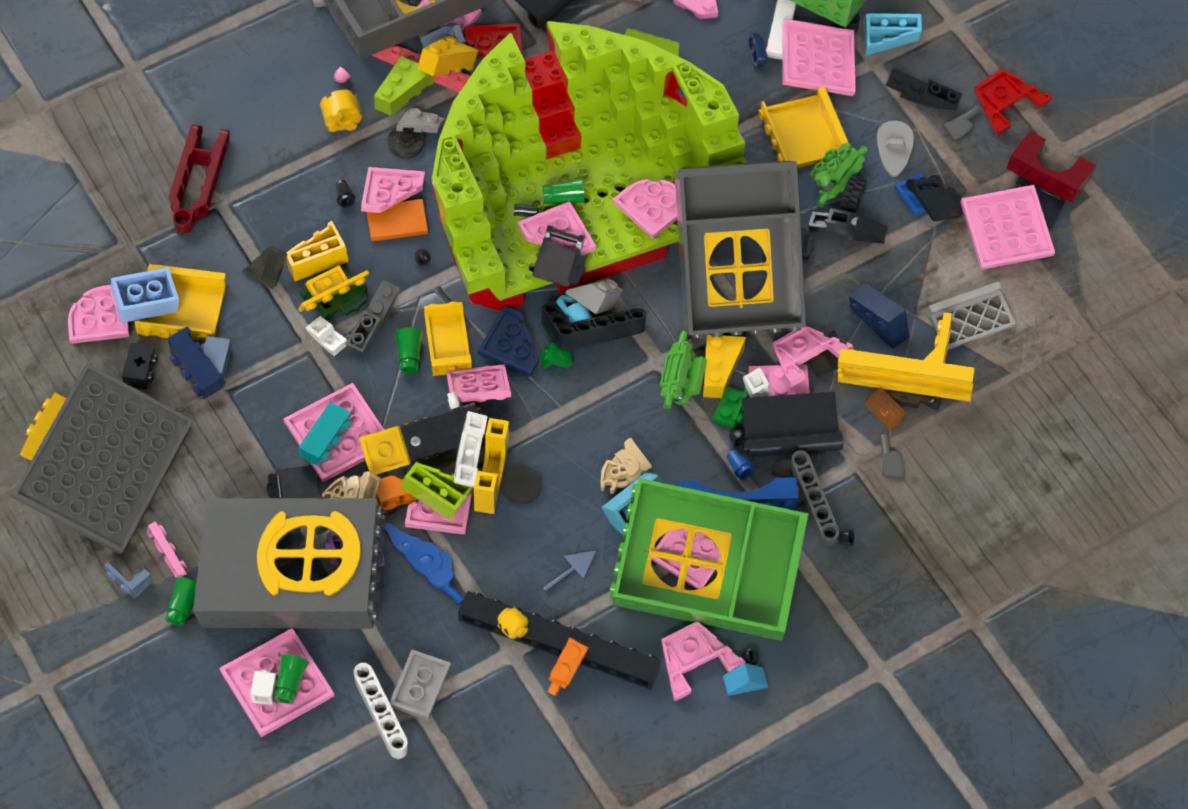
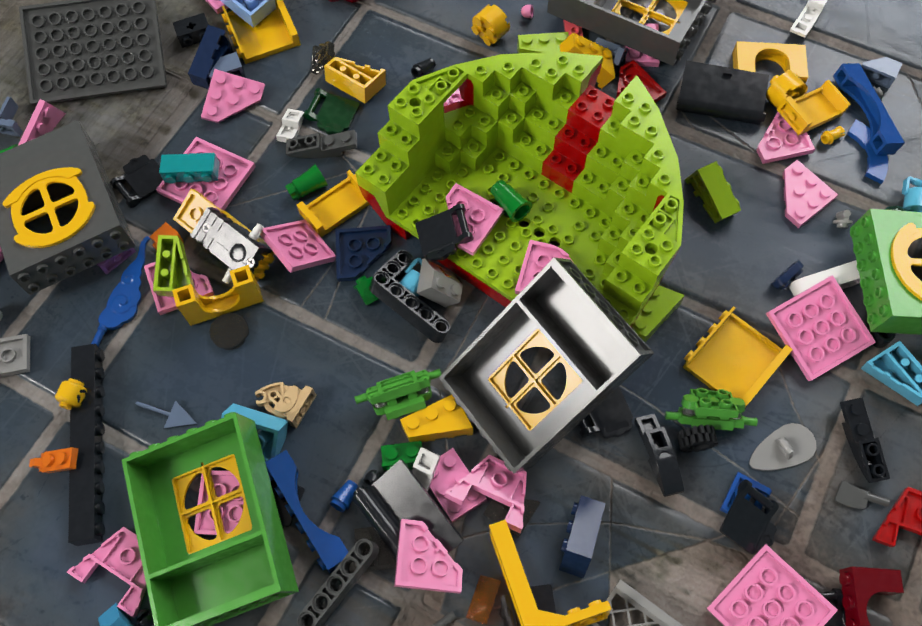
camera: 65 degrees right, 5 degrees up
(254, 368) = (230, 95): none -> bright pink plate
(328, 284) = (329, 99): yellow bracket -> none
(354, 487) = (147, 217): tan piece -> none
(469, 449) = (214, 270): white slope -> none
(525, 210) = (473, 183): black pin -> none
(834, 425) = (424, 561): none -> bright pink plate

